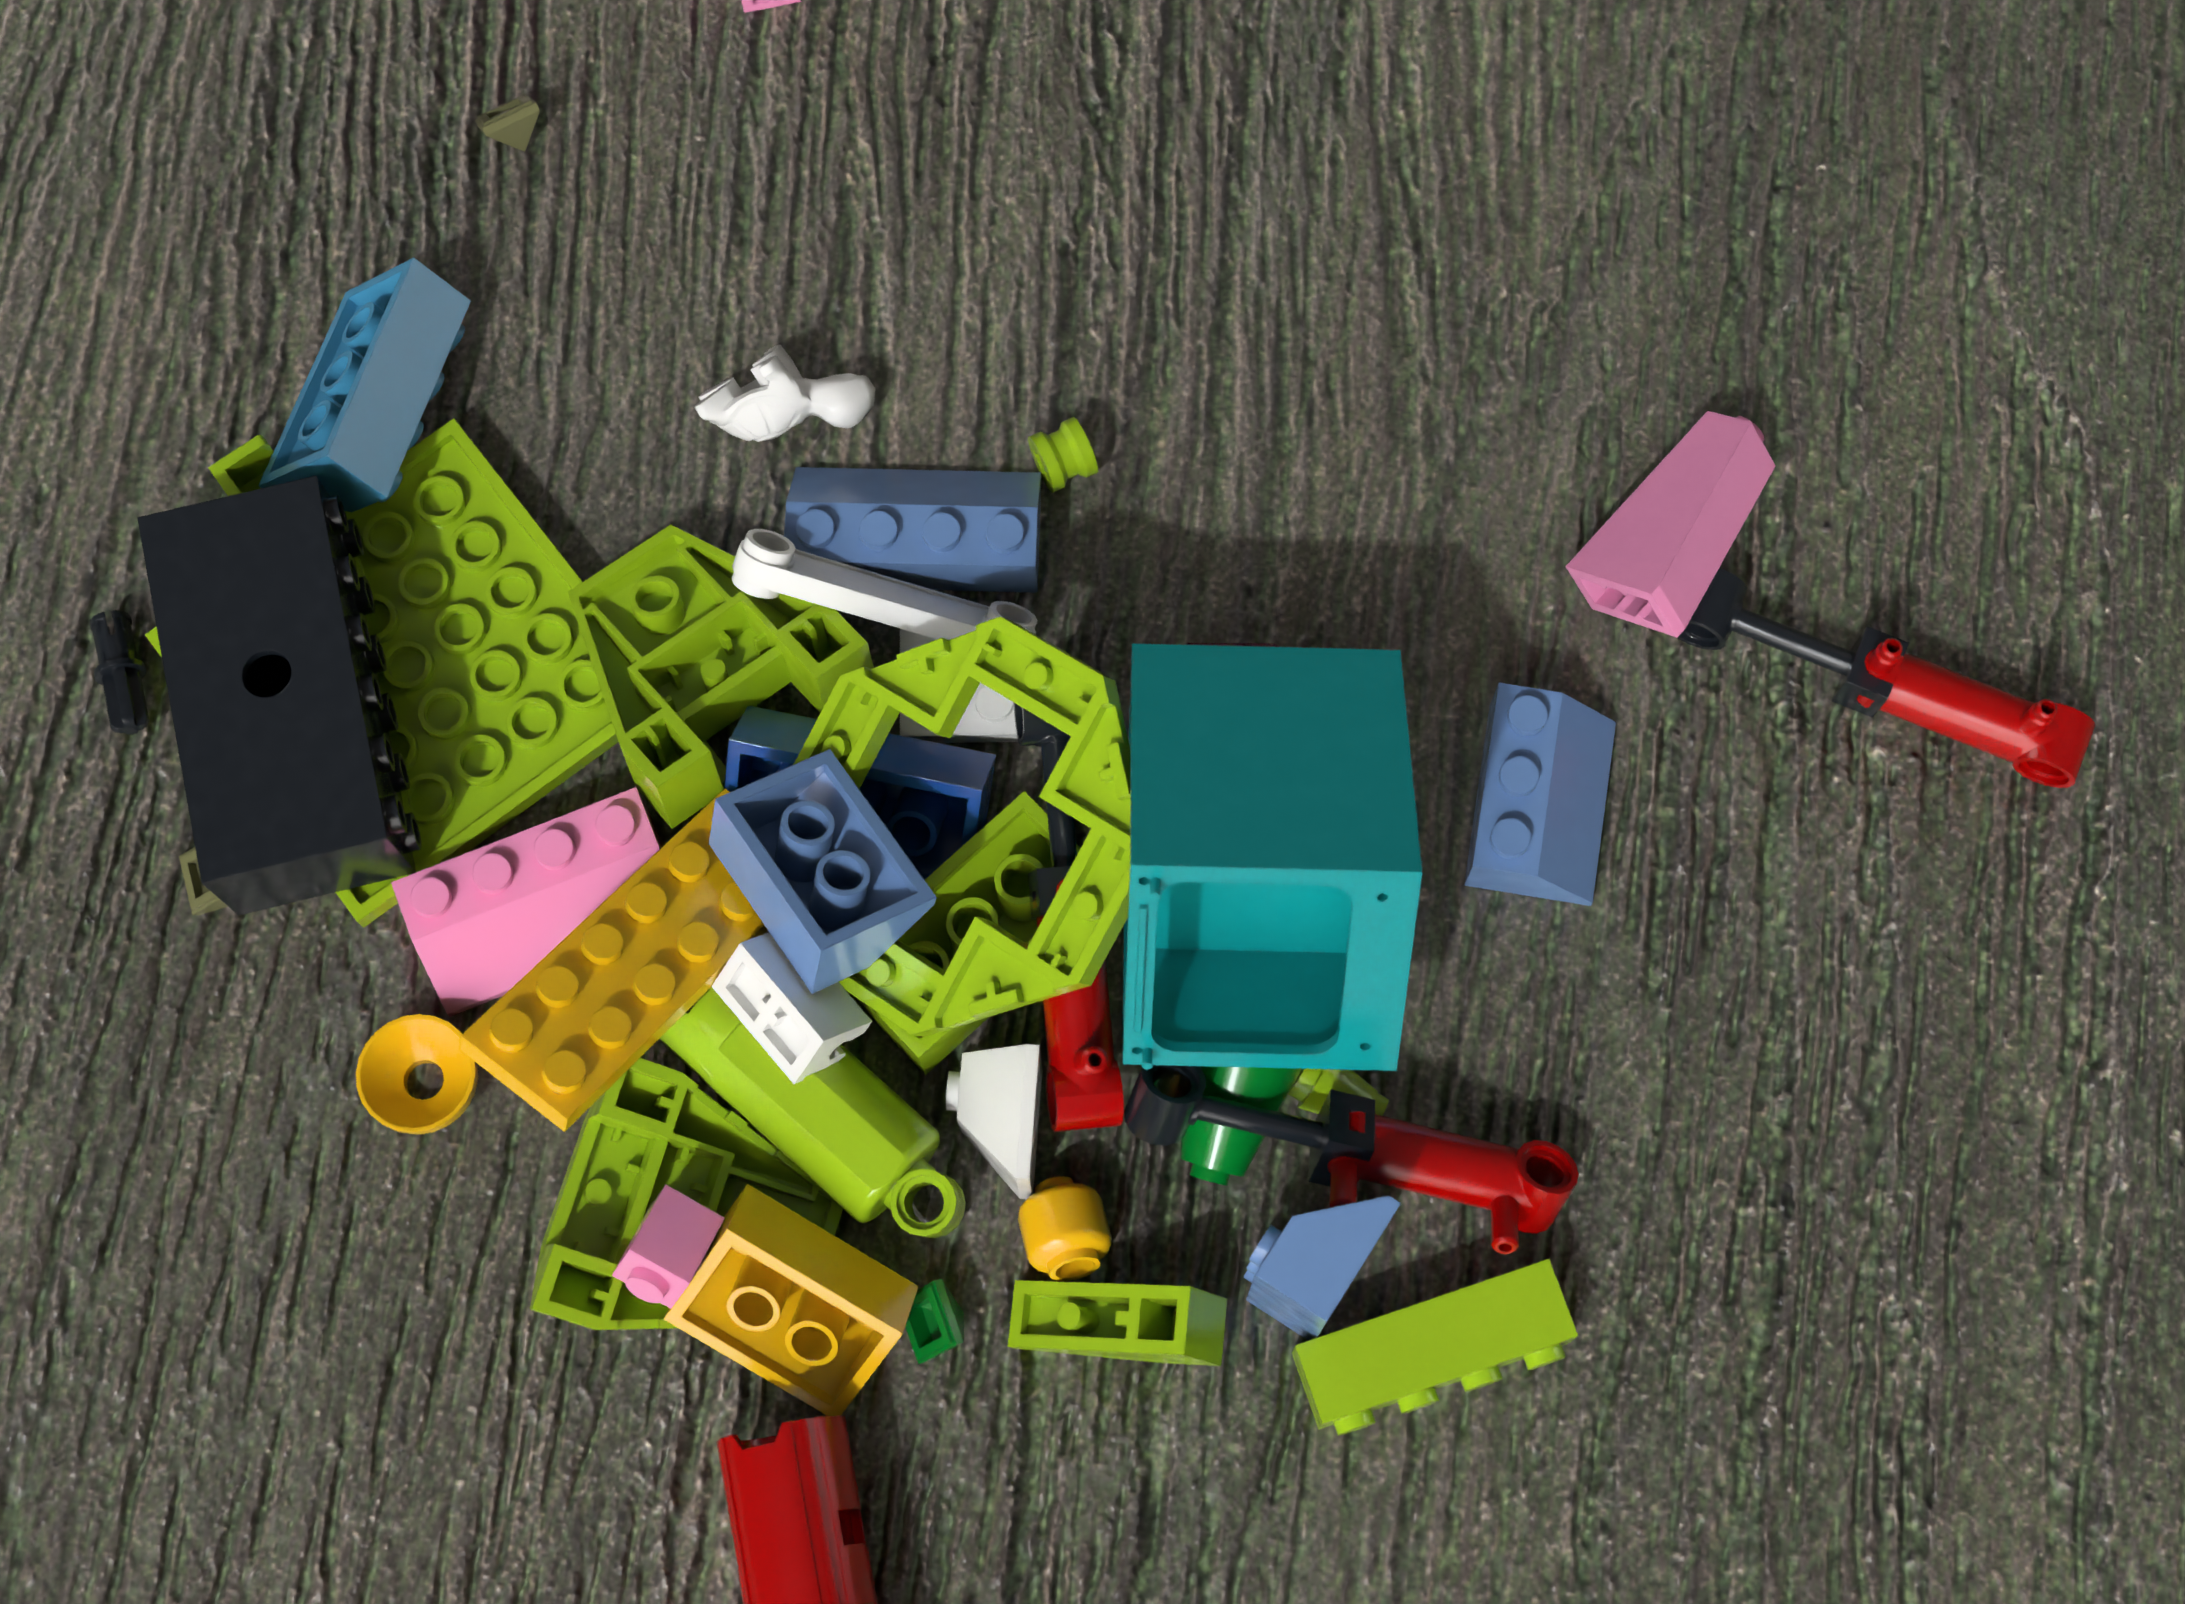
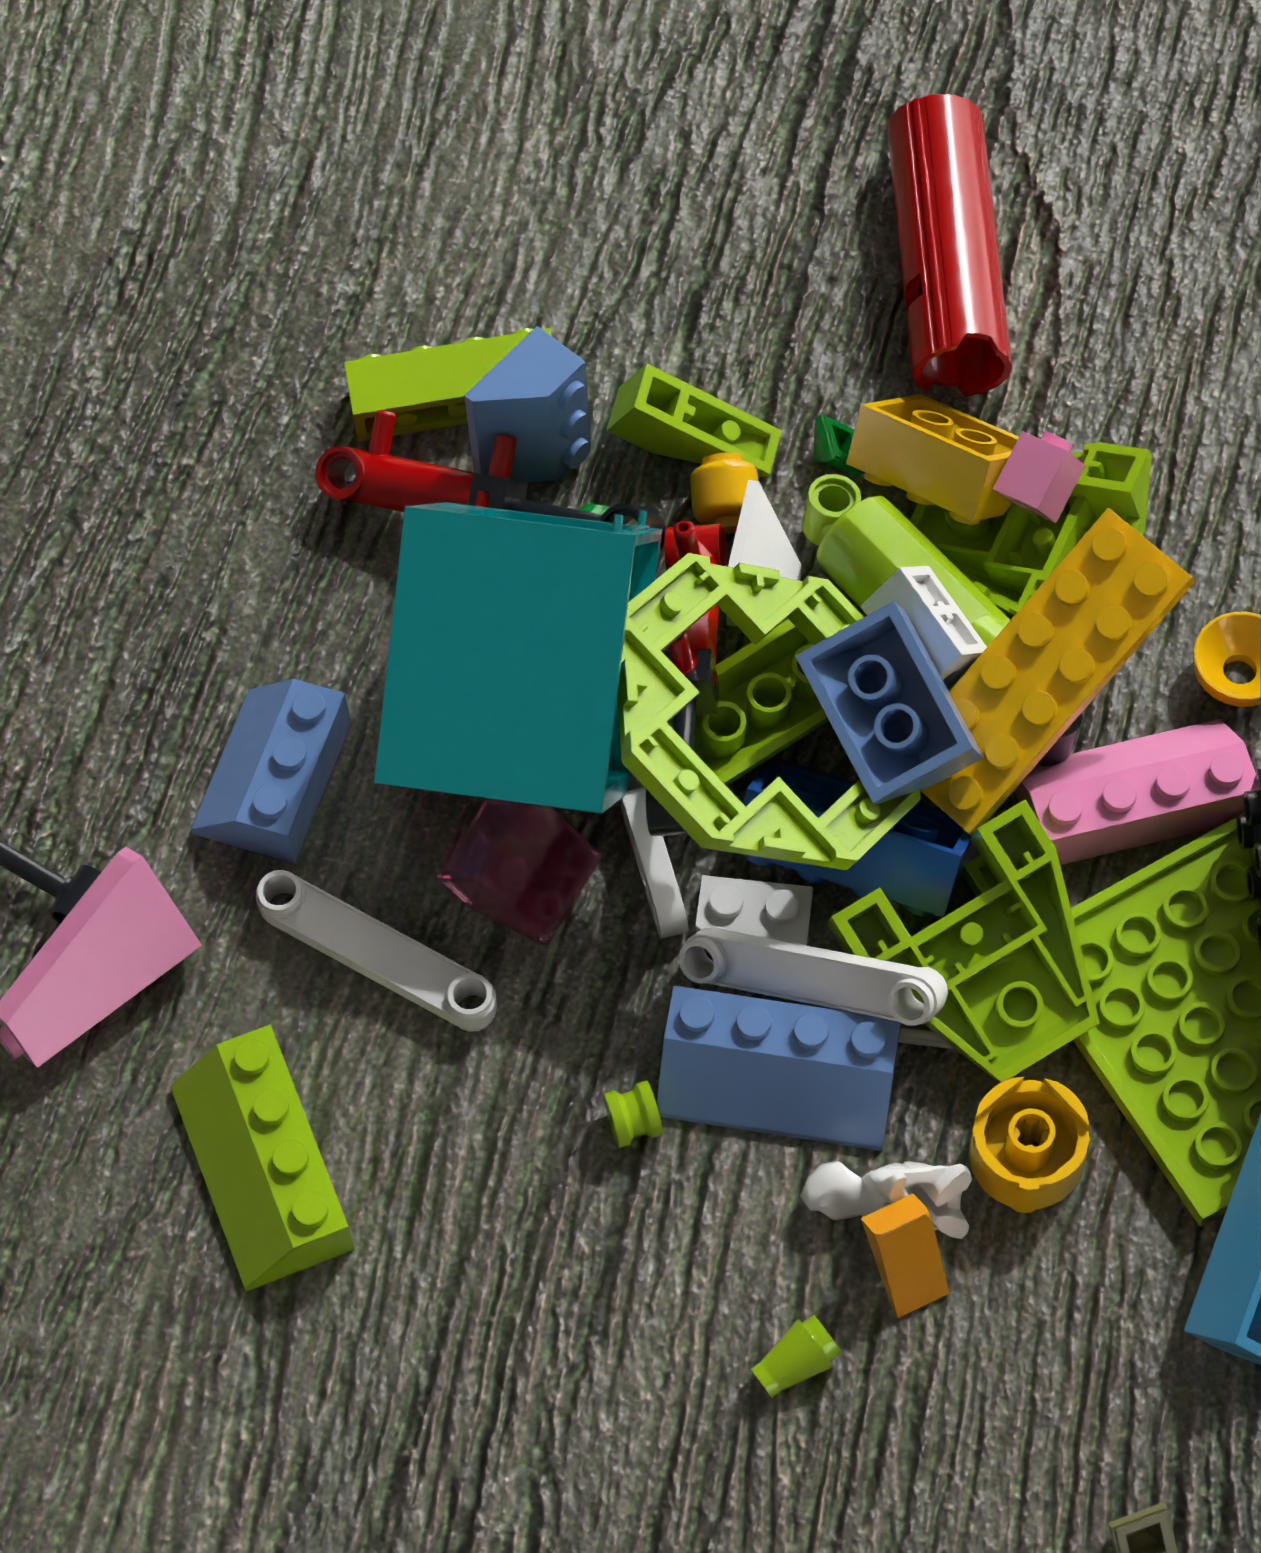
camera: 170 degrees left, 10 degrees down
(663, 447) = (1029, 1112): none -> yellow brick
(762, 331) = (906, 1254): none -> light orange slope
(857, 241) = (797, 1356): none -> lime cone
(1375, 600) = (376, 950): none -> white piece
(1441, 361) = (260, 1160): none -> lime slope

